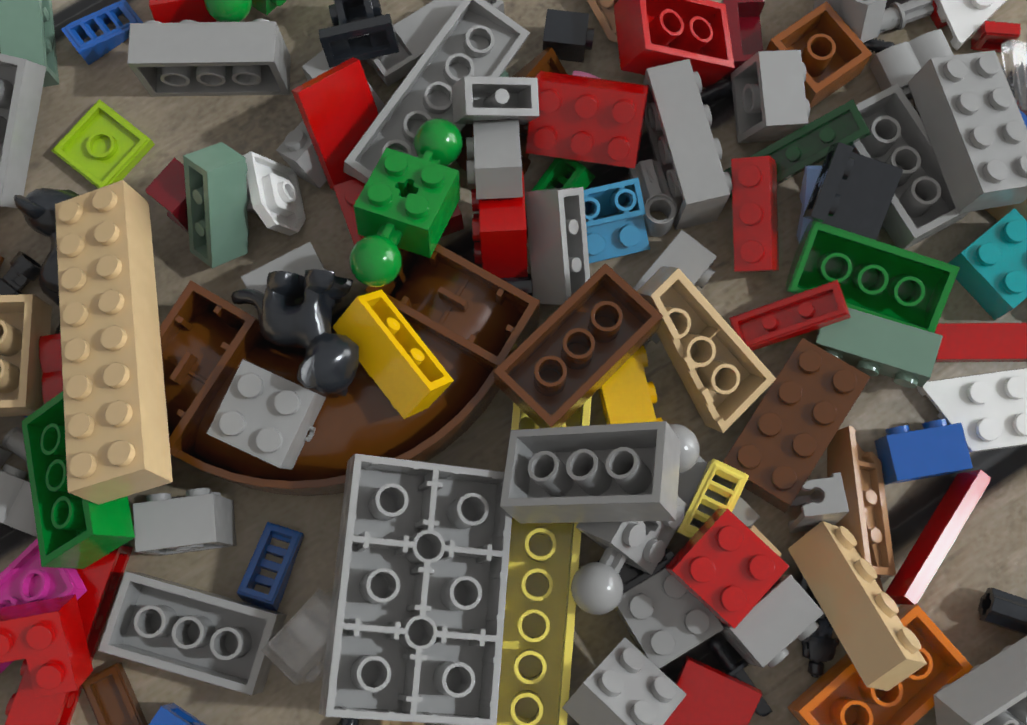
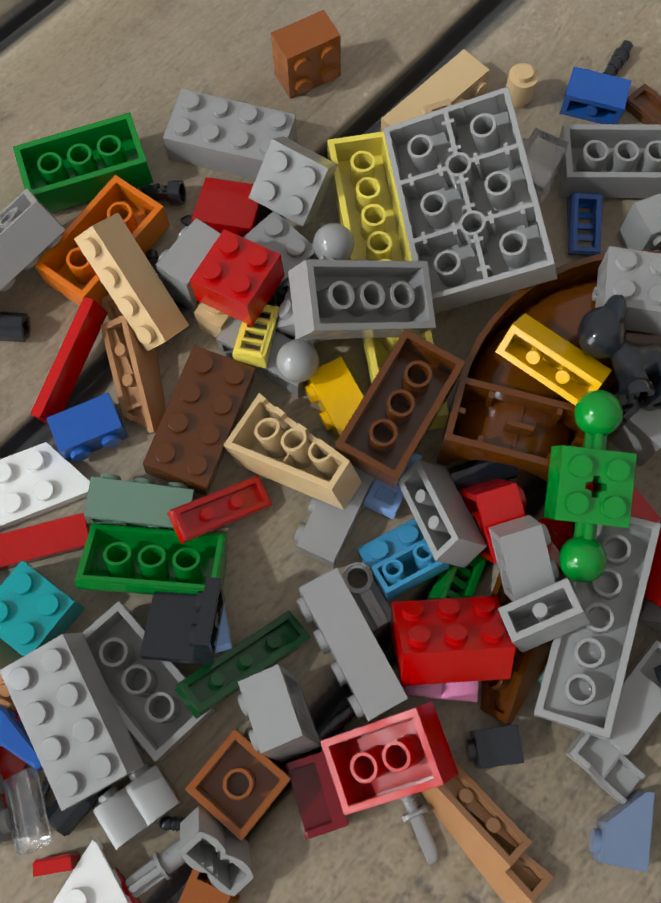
camera: 165 degrees right, 5 degrees down
(755, 214) = (269, 592): red brick -> none
(825, 504) = (167, 351): light grey hinge -> none

